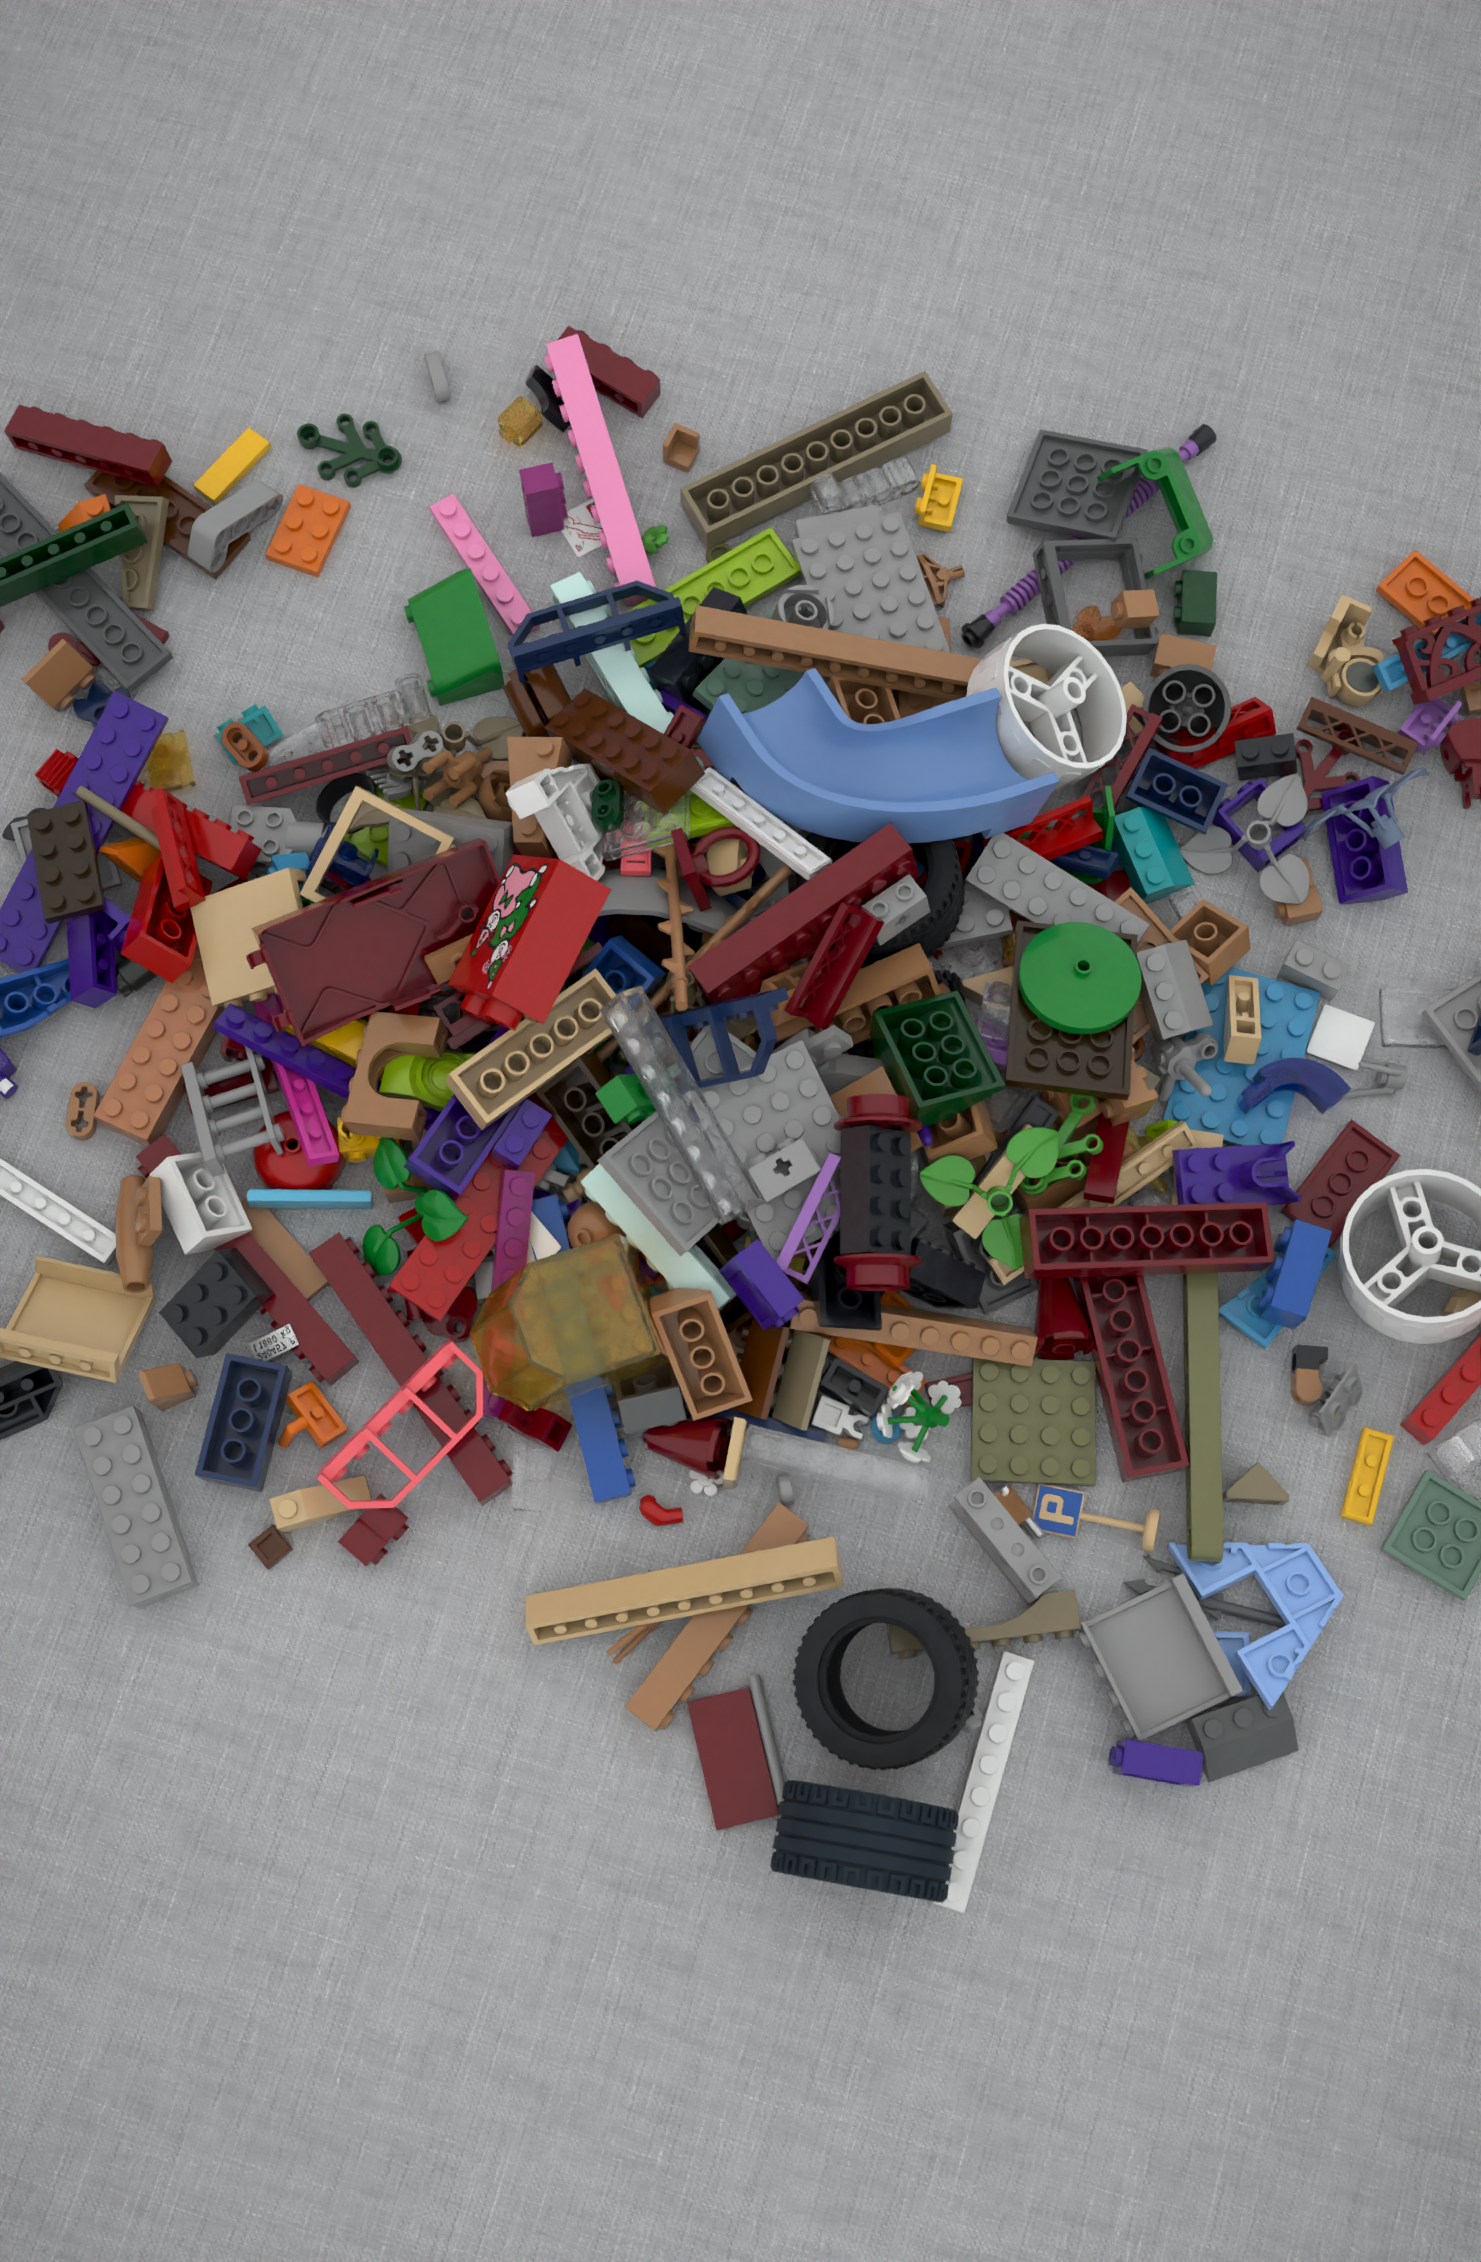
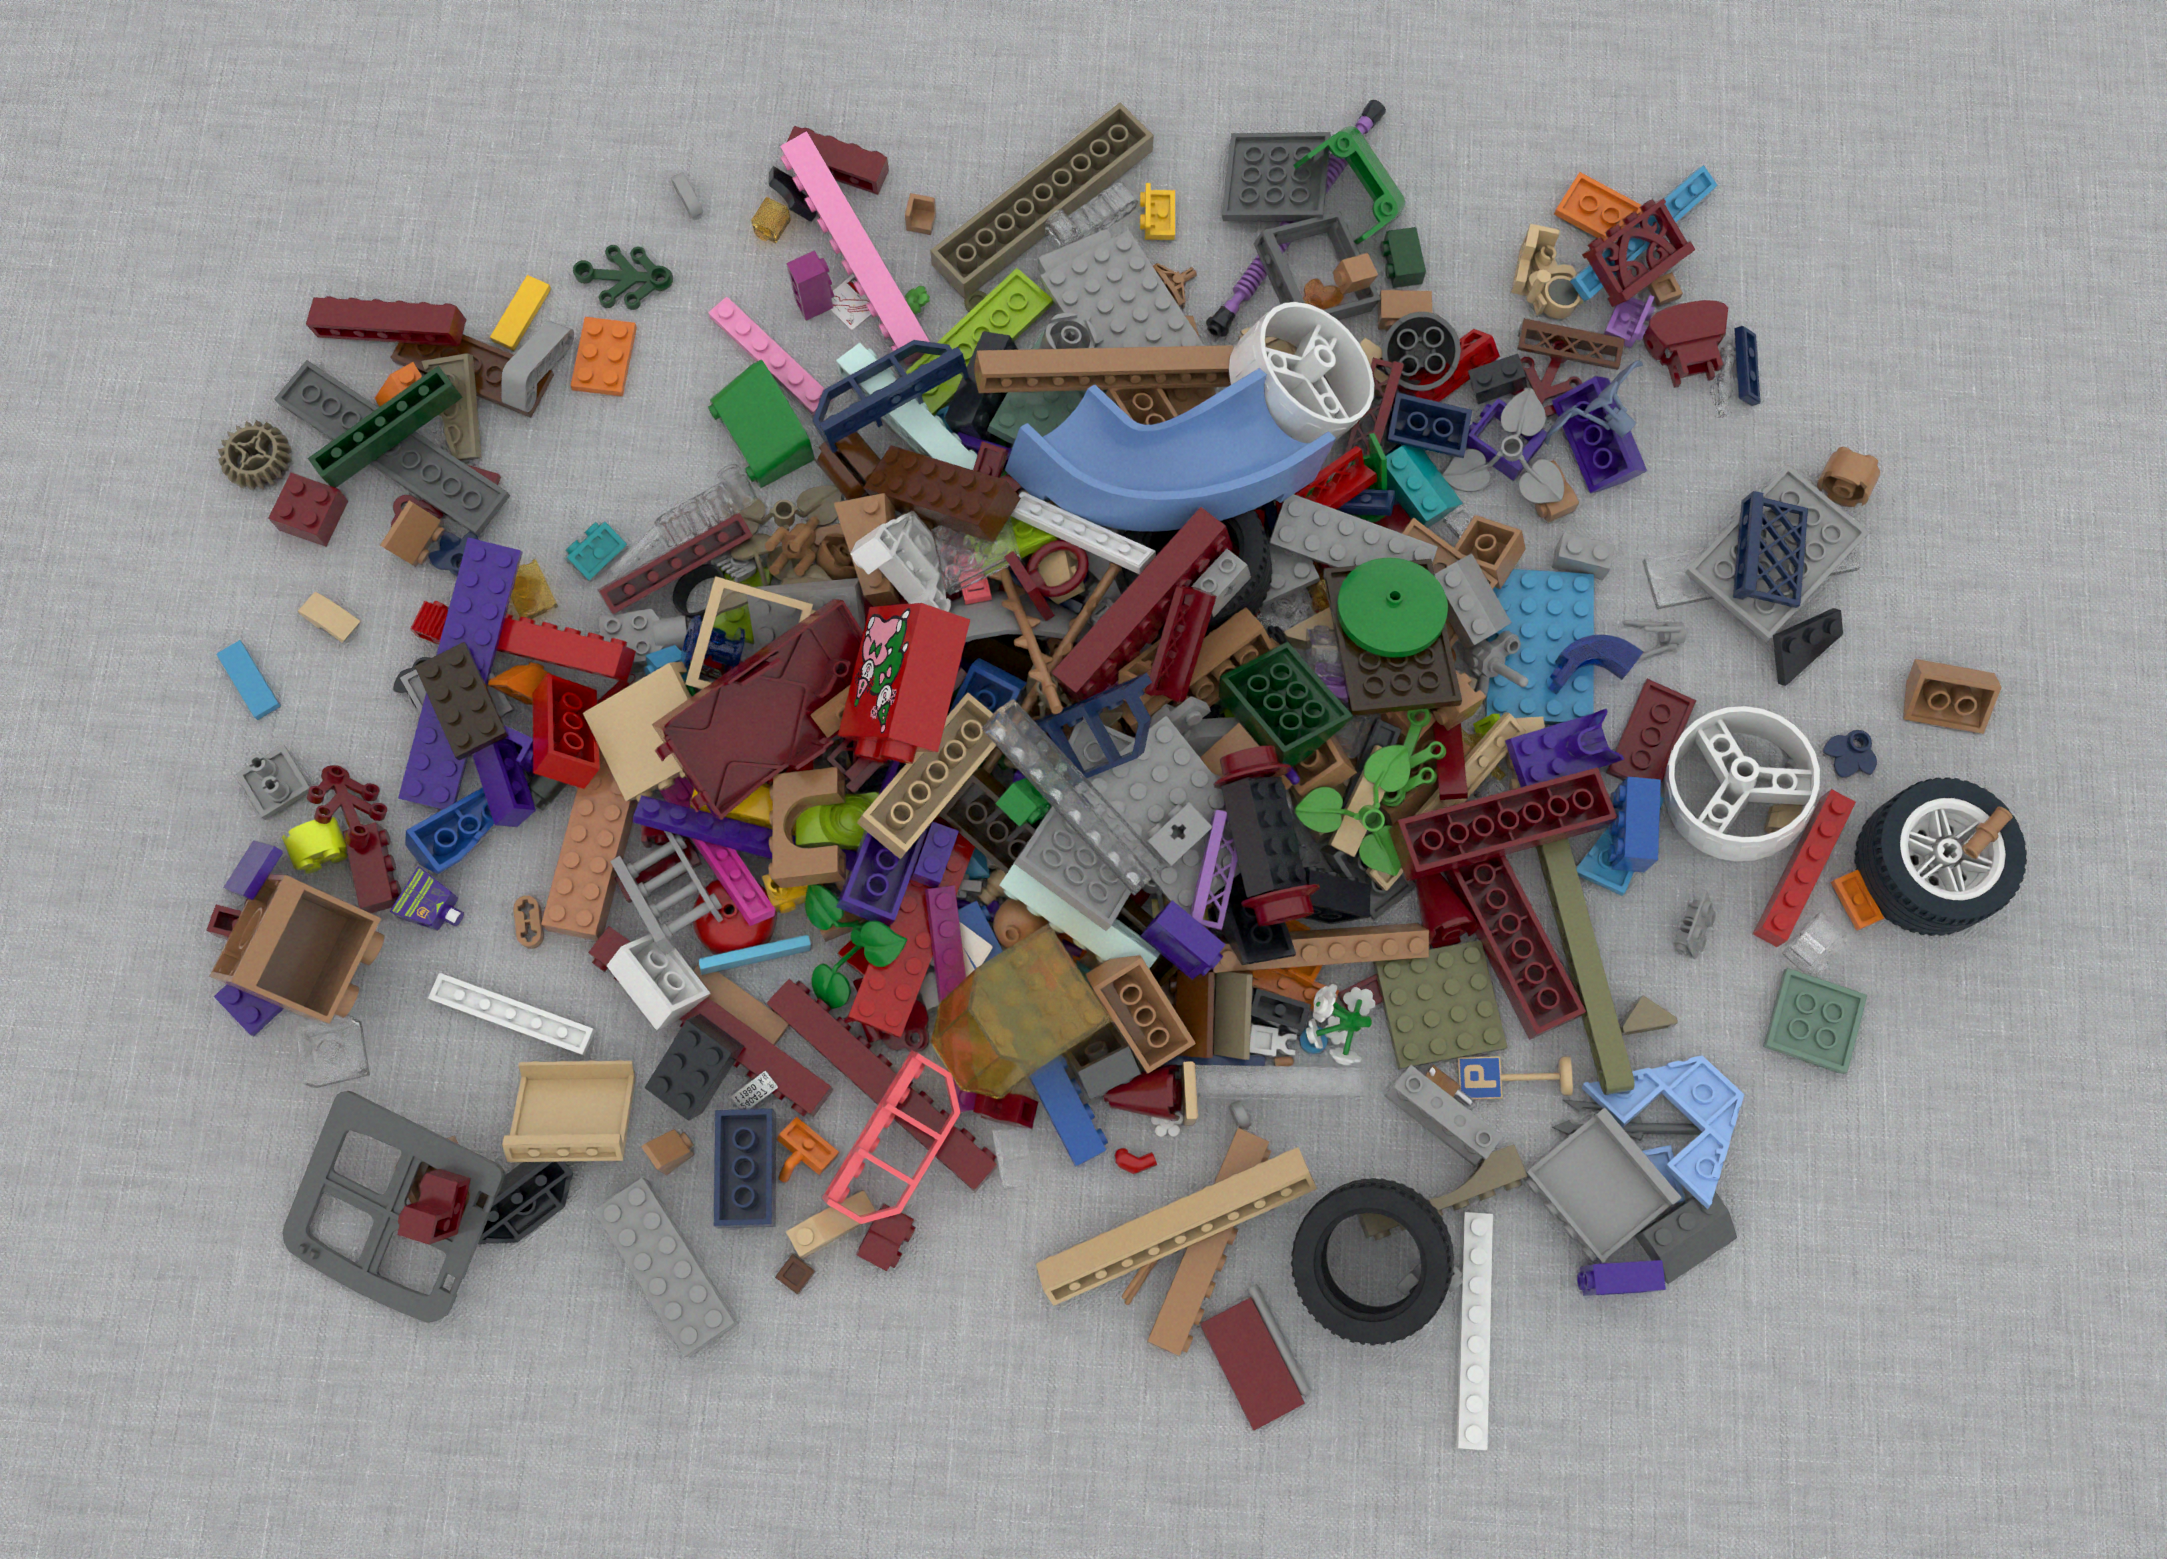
camera: 15 degrees left, 0 degrees up
(118, 816) = (508, 653): dark tan bar -> none
(137, 1227) = (607, 1016): medium nougat plate -> none
(177, 851) = (561, 670): red fence -> none
(246, 748) = (598, 563): dark orange plate -> none
(415, 751) = (752, 533): light grey axle -> none
(608, 805) = (939, 545): dark green plate -> none
(865, 1840) = (1392, 1410): black wheel -> none
(1242, 1020) = (1534, 613): tan slope -> none
(1305, 1381) = (1662, 908): leg -> none
(1340, 1037) = (1620, 609): white sticker -> none
(1367, 1476) = (1736, 985): yellow tile -> none

